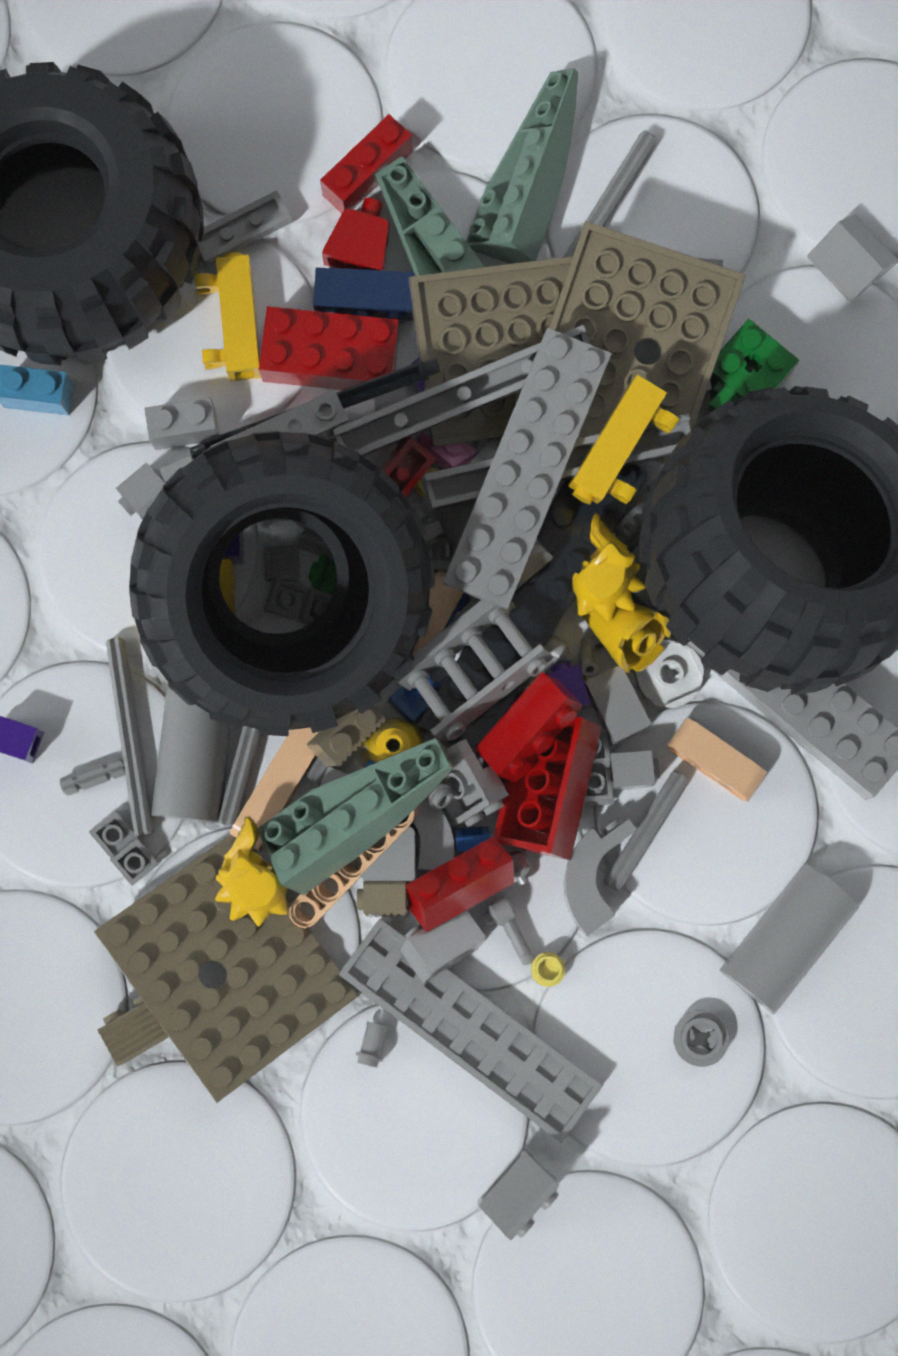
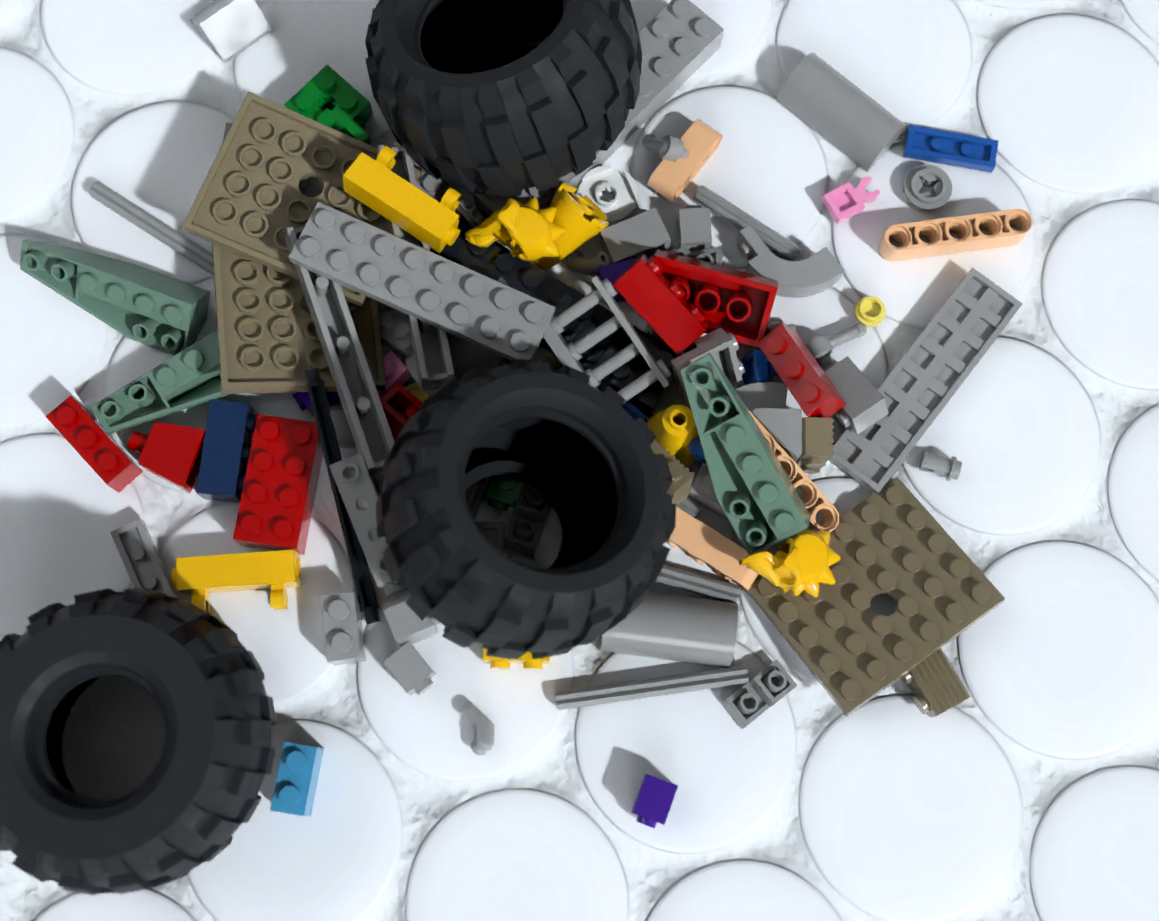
camera: 90 degrees left, 5 degrees down
(84, 568) = (483, 730): none -> light grey arm
(92, 776) = (690, 723): light grey axle -> none
(519, 1195) = (1071, 338): light grey slope -> none
(652, 1081) = (965, 226): none -> light nougat beam
(677, 943) = (848, 201): none -> bright pink plate
(721, 736) = (667, 147): none -> light grey piece
(750, 1066) = (950, 148): none -> blue plate

